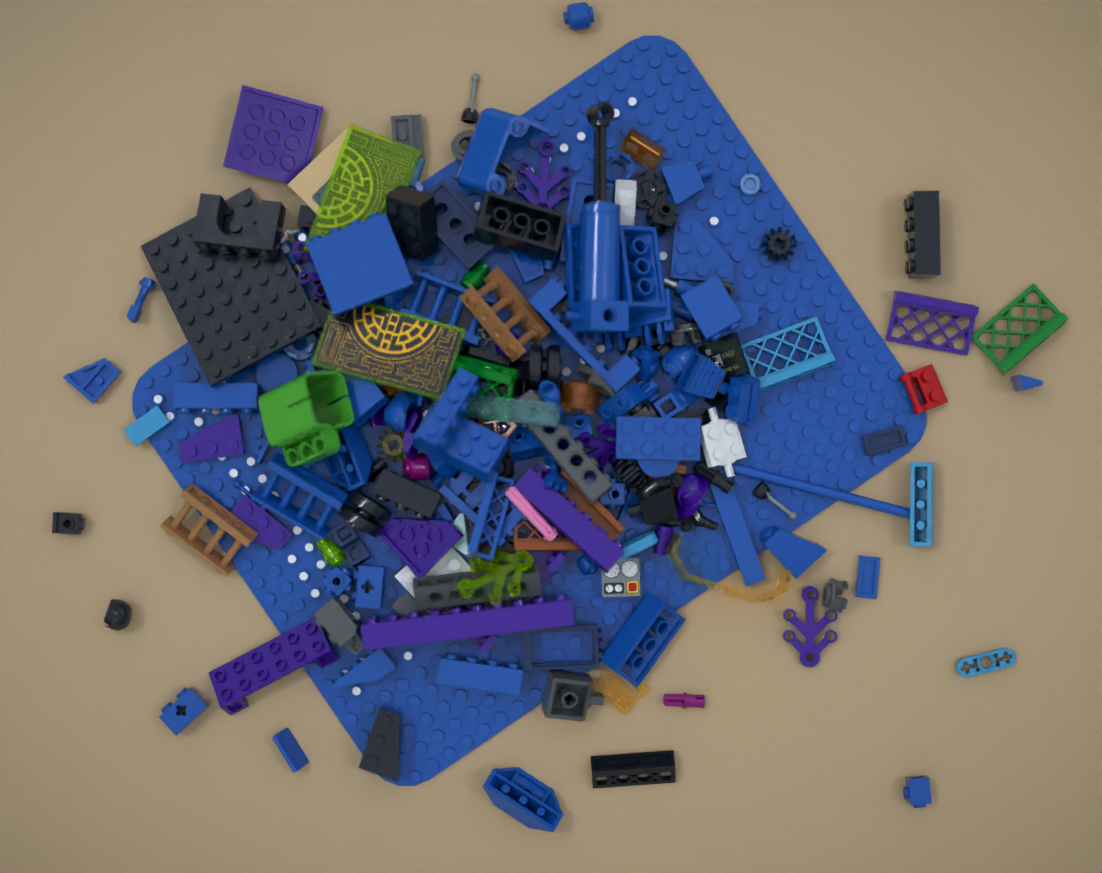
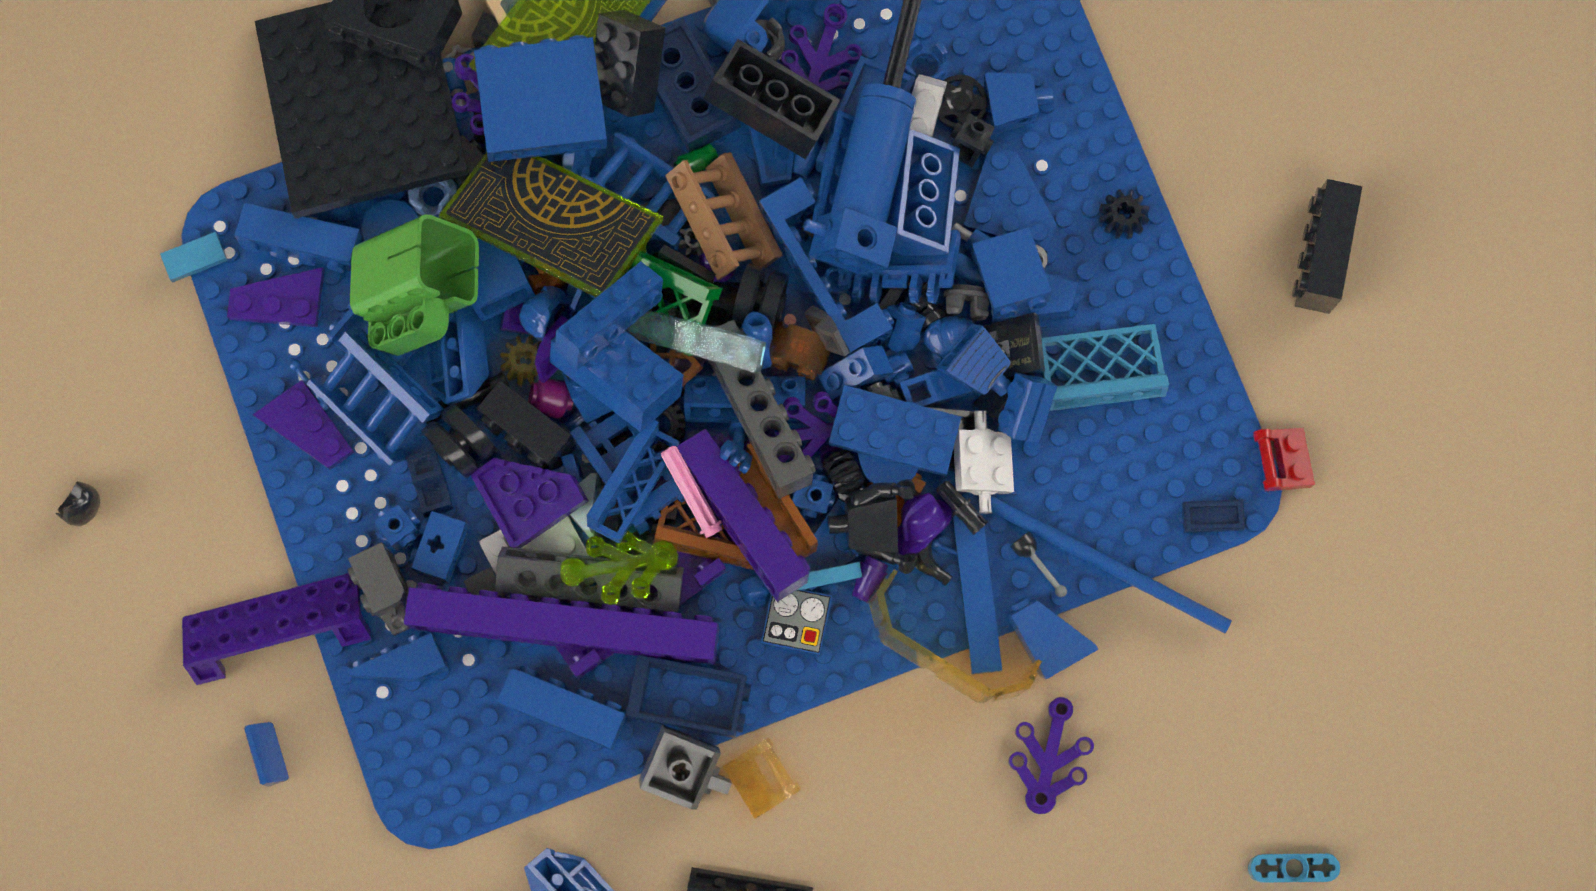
camera: 15 degrees right, 10 degrees down
(59, 521) = (36, 359): black brick -> none
(93, 379) = (141, 180): blue wing -> none
(135, 310) = (221, 102): blue hinge -> none
(195, 705) = (149, 660): blue brick -> none
(218, 514) = (264, 409): medium nougat fence -> none
(332, 554) = (398, 487): clear neon green cone -> none
(383, 746) = (399, 775): black wedge -> none
(642, 149) = (966, 49): clear orange slope -> none
(642, 639) = (807, 714): blue slope -> none
(684, 700) = (846, 818): magenta axle -> none
(749, 184) = (1102, 127): medium blue tile -> none
(829, 597) = (1094, 717): dark grey piece -> none
(867, 577) = (1148, 705): blue tile -> none
(922, 503) = (1249, 616): dark azure brick -> none
(933, 304) = (1325, 347): dark purple fence -> none
(1023, 382) = (1430, 480): blue slope -> none
(1032, 342) = (1454, 427): green fence -> none

